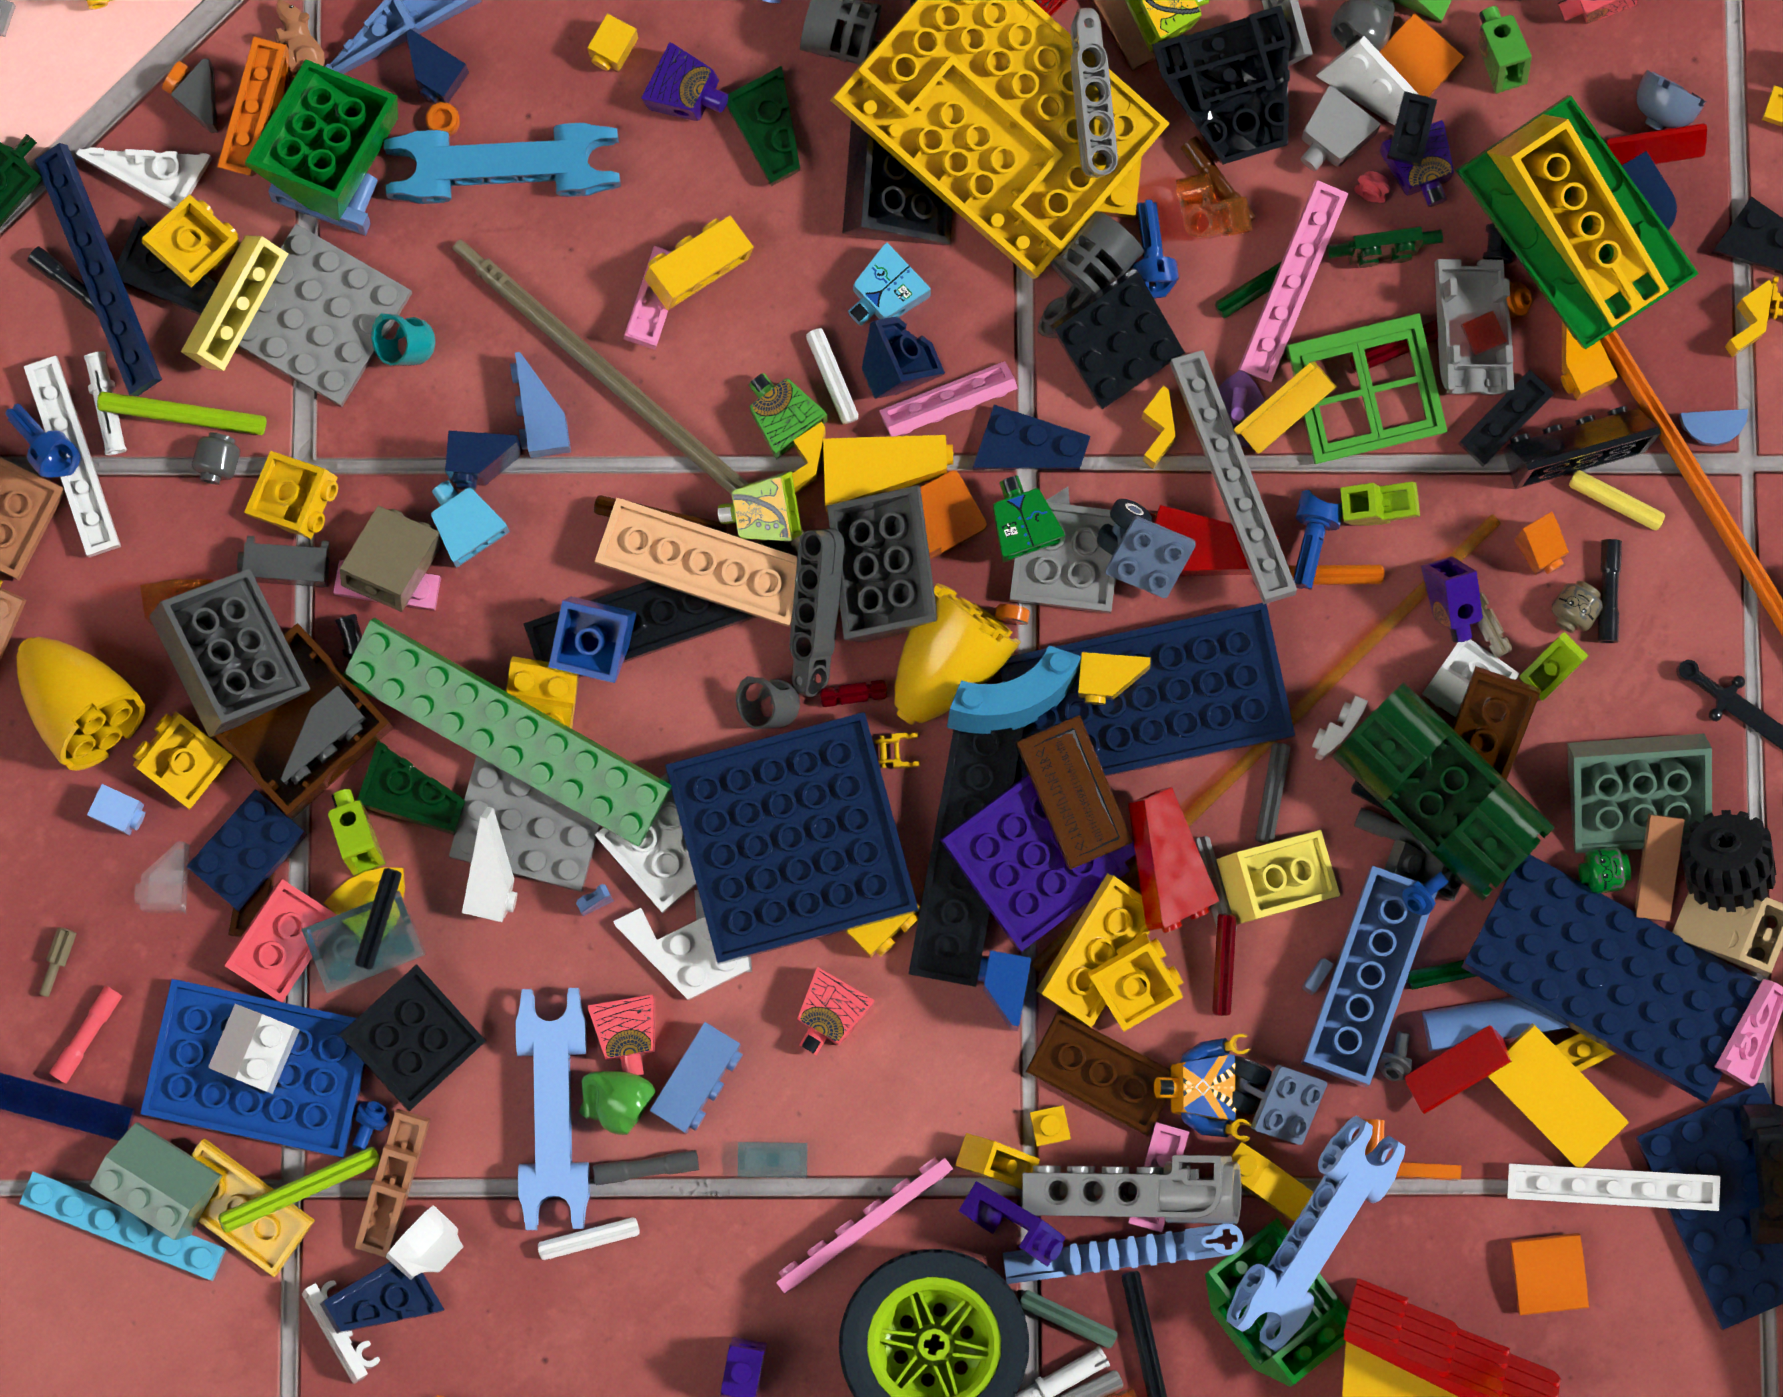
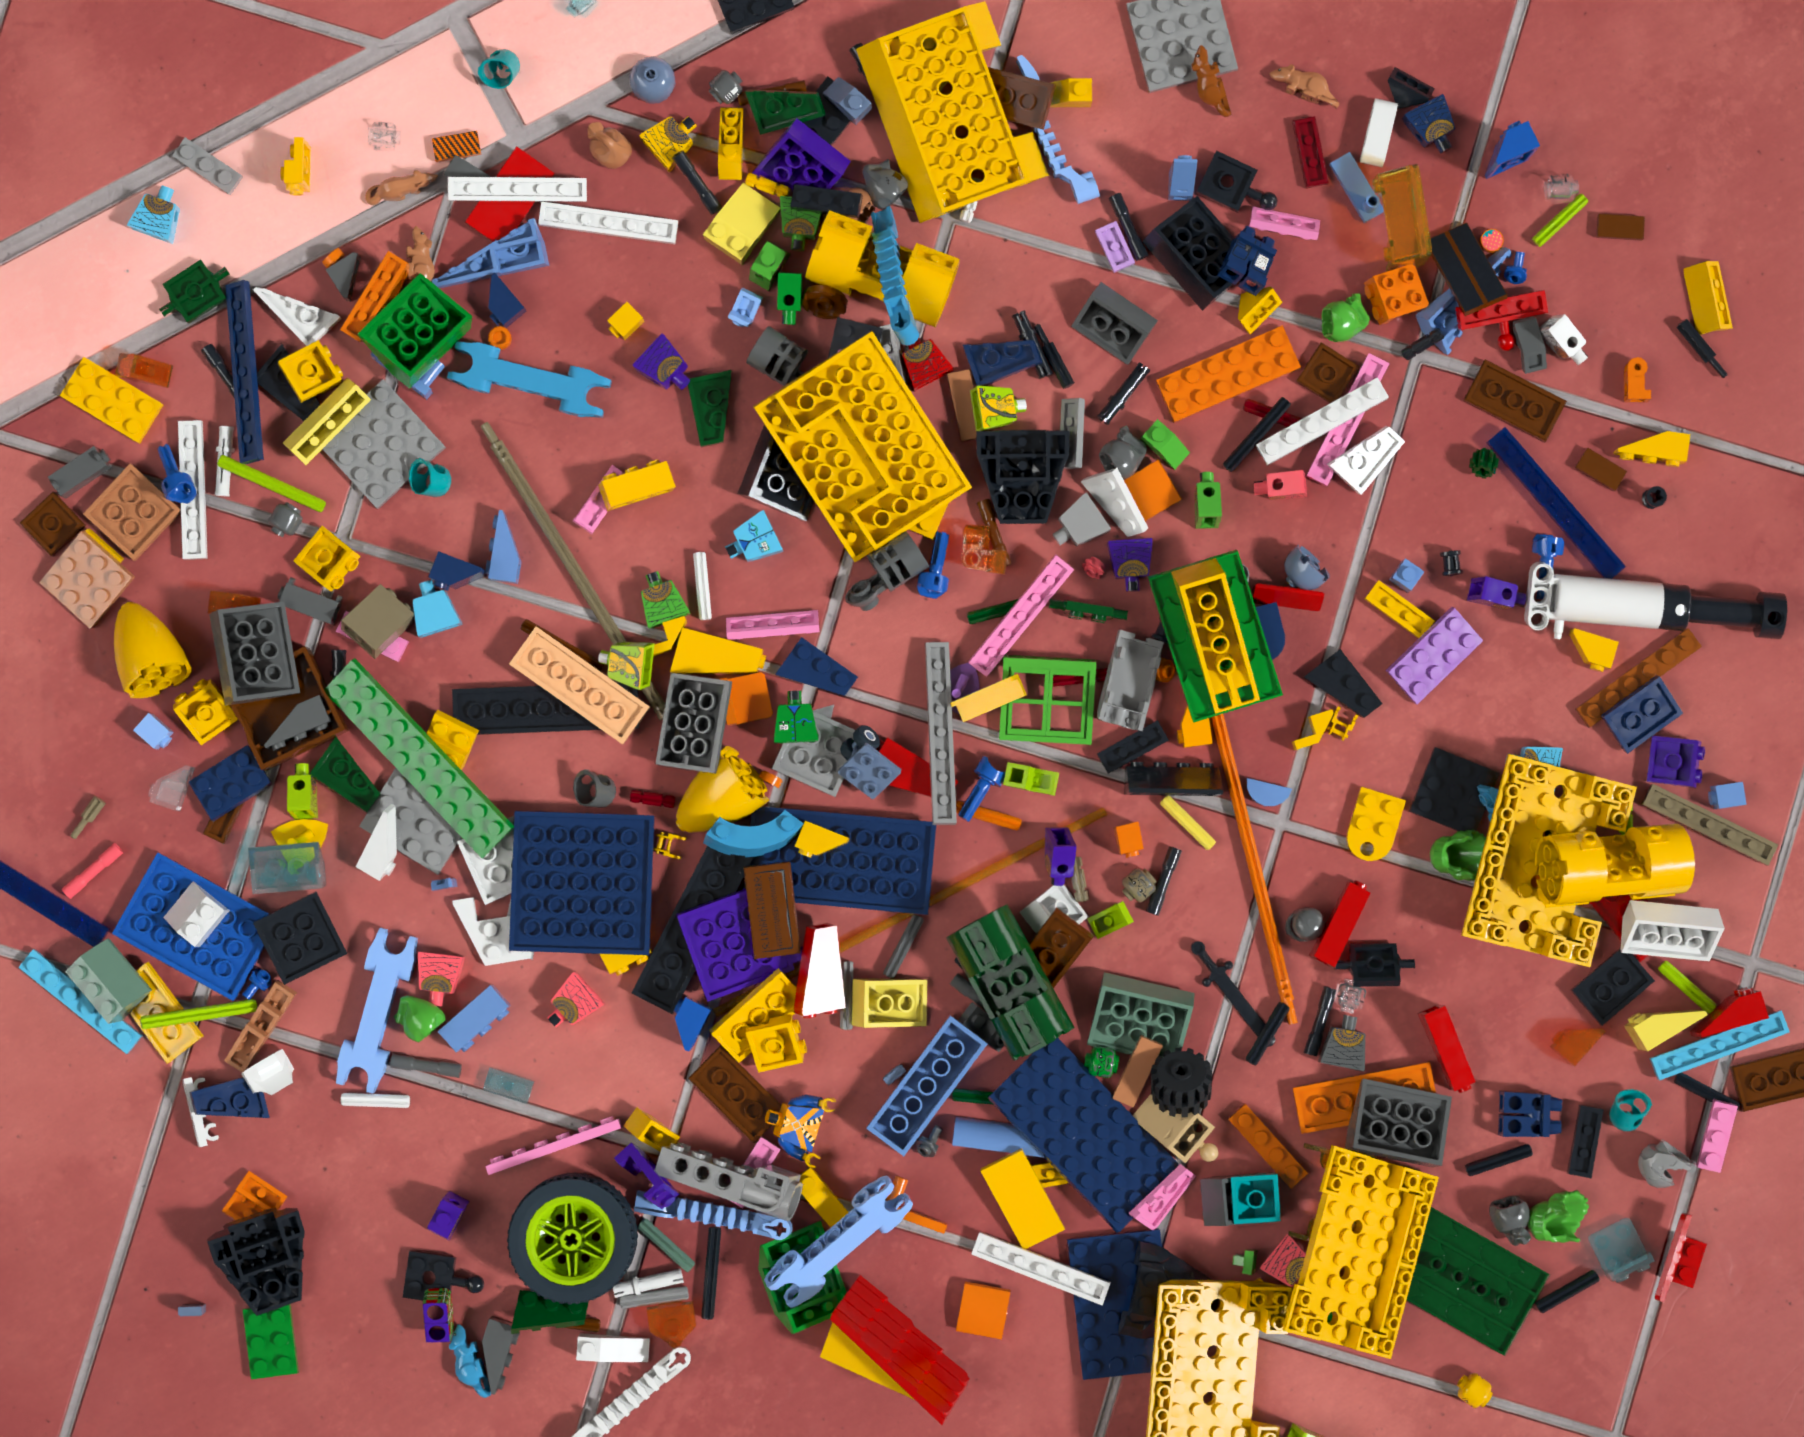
camera: 15 degrees right, 5 degrees up
(273, 946) = (227, 853): coral plate -> none
(378, 918) = (298, 856): black axle -> none
(591, 639) = (491, 714): blue slope -> none
(815, 608) = (642, 738): dark grey piece -> none
(897, 359) = (748, 588): dark blue slope -> none
(1050, 1126) = (693, 1117): yellow plate -> none
(1091, 40) = (928, 419): light grey piece -> none
(1117, 338) = (894, 619): black plate -> none
(1159, 416) = (907, 677): yellow slope -> none
(1224, 964) = (836, 1048): dark red axle -> none
(1286, 1103) = (847, 1151): sand blue plate -> none
(1329, 739) = (952, 922): white slope -> none
(1412, 129) = (1129, 539): black plate -> none
(1419, 897) = (972, 1045): blue plate -> none
(1458, 1068) = (964, 1162): red slope -> none
(1483, 333) = (1134, 688): clear red plate -> none

